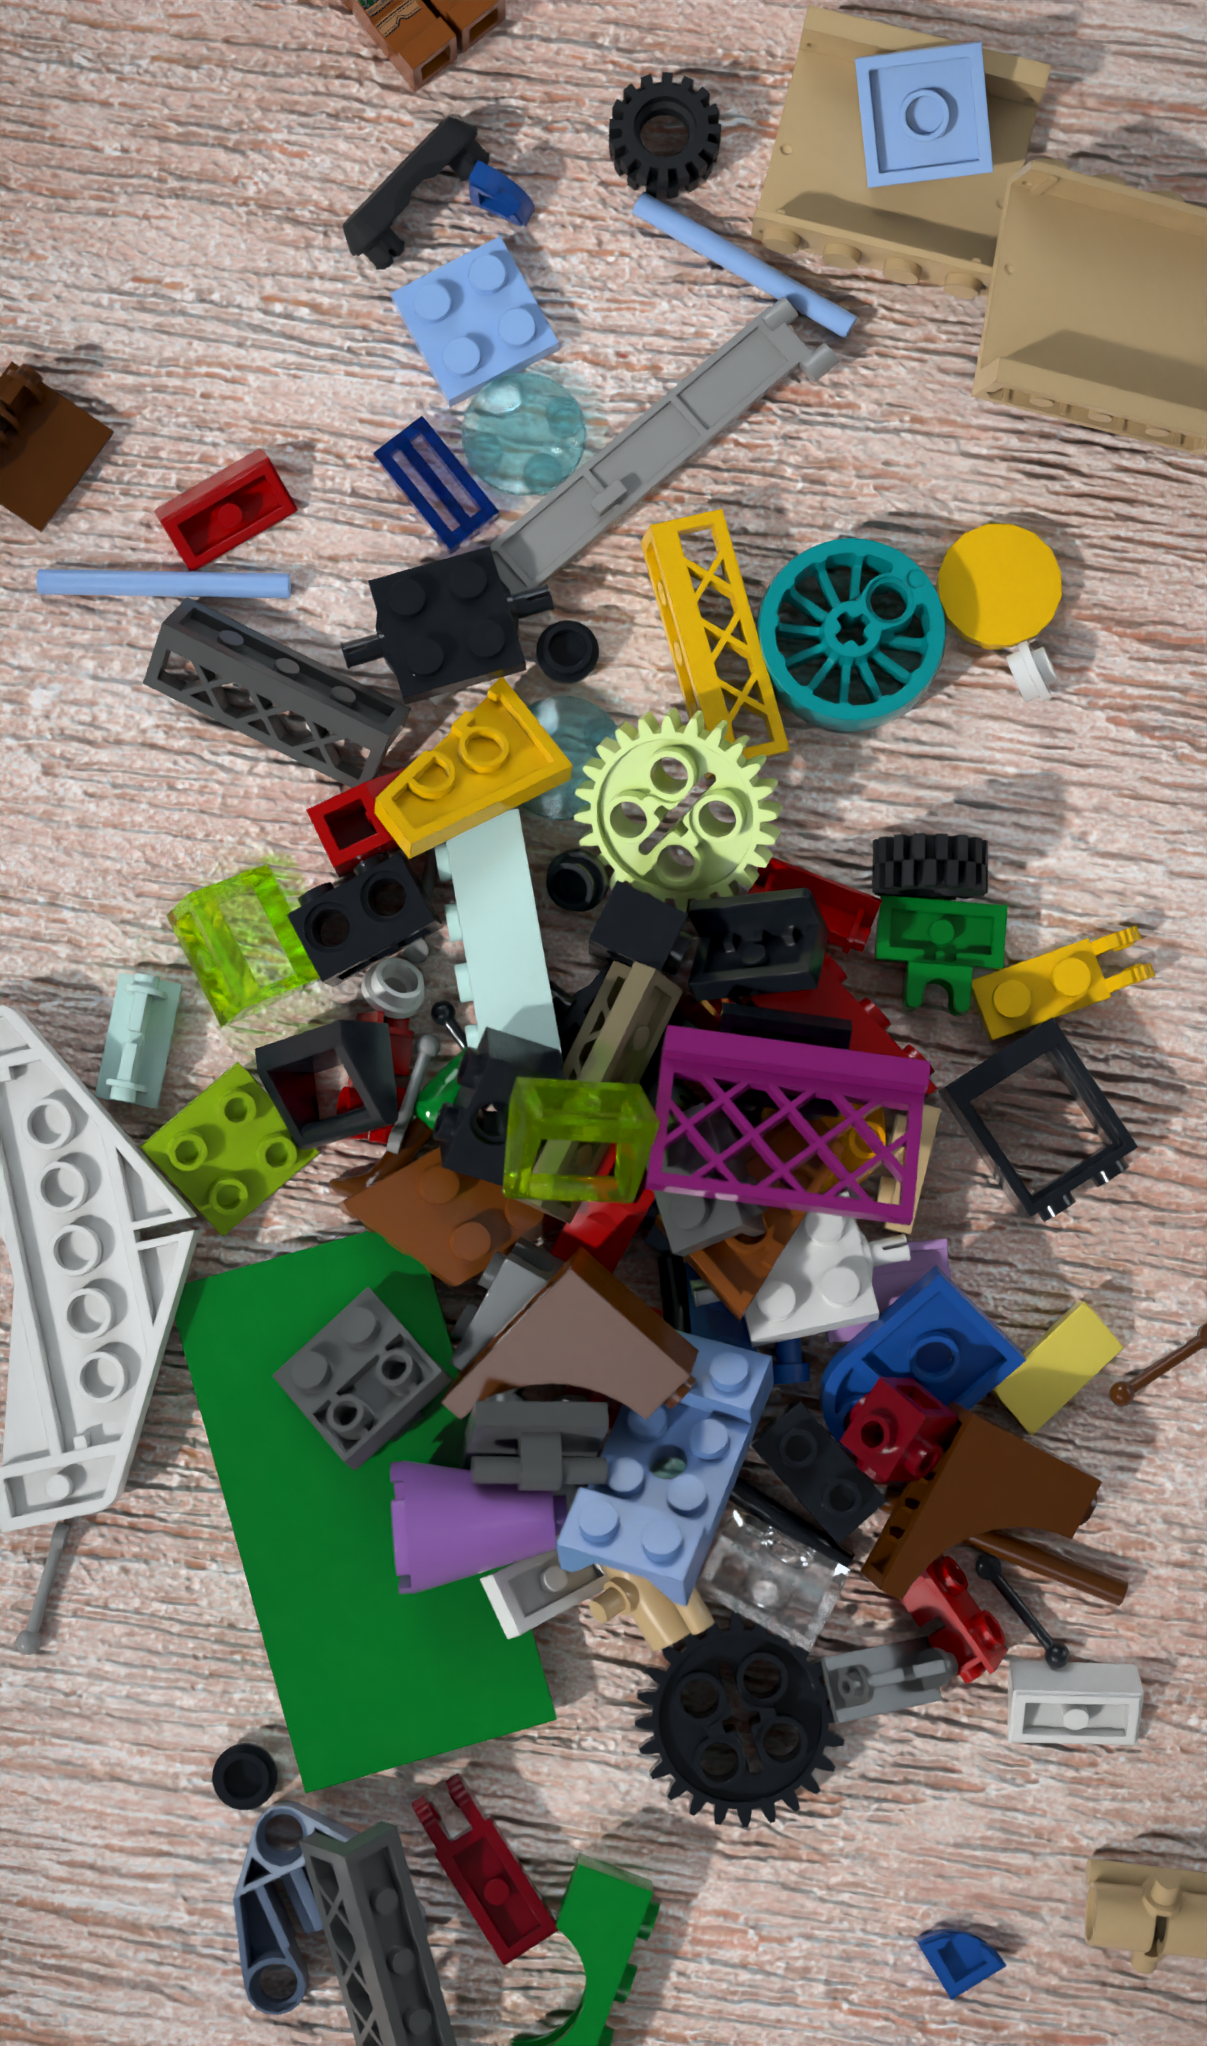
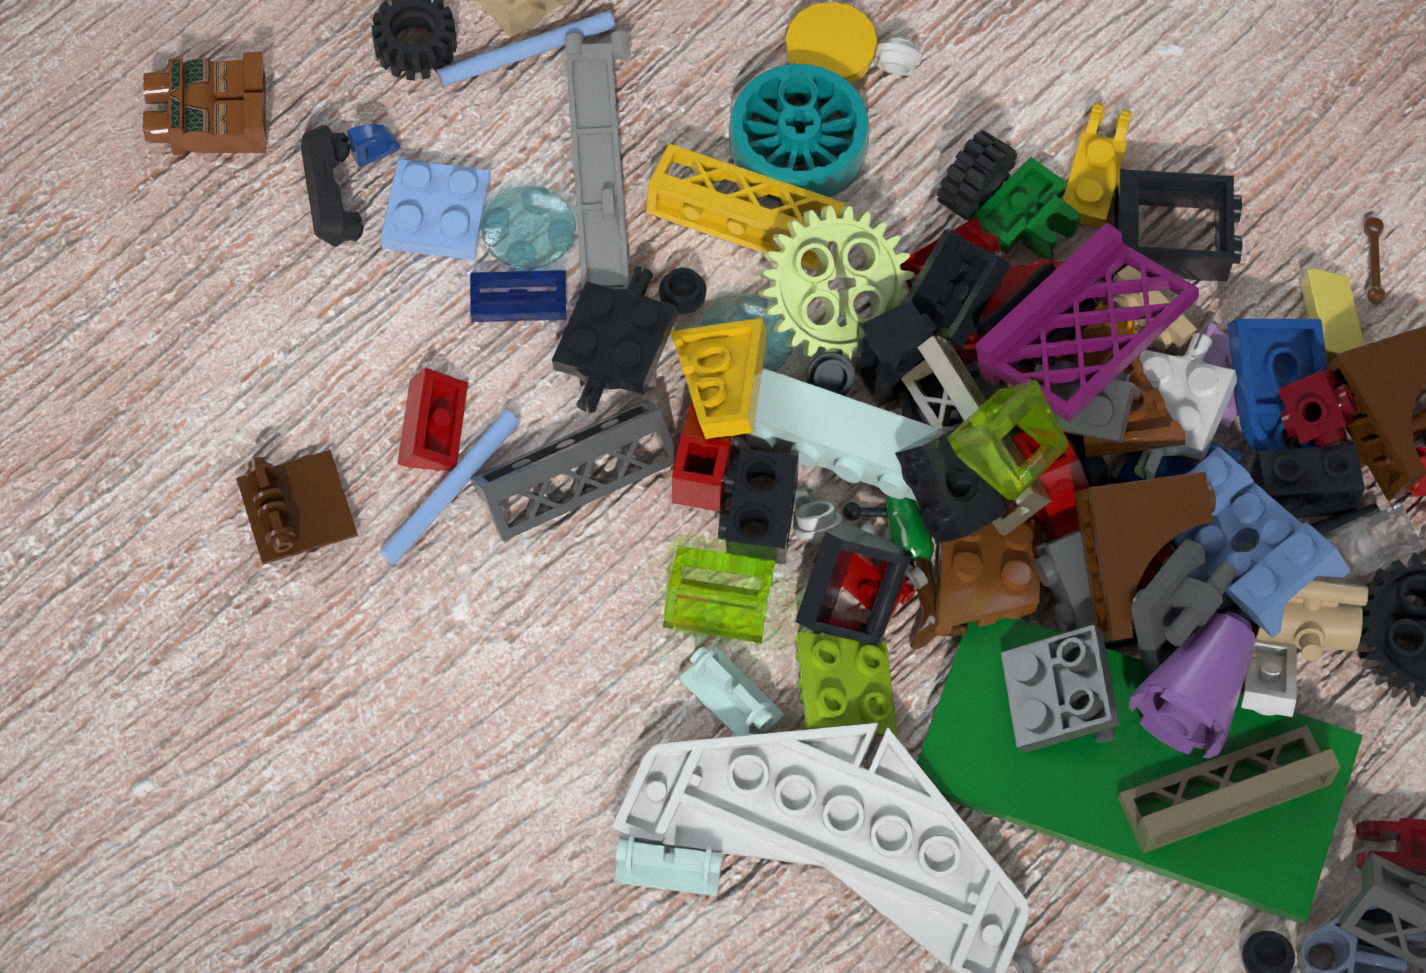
camera: 50 degrees left, 20 degrees down
(372, 1642) = (1231, 799): none -> dark tan fence

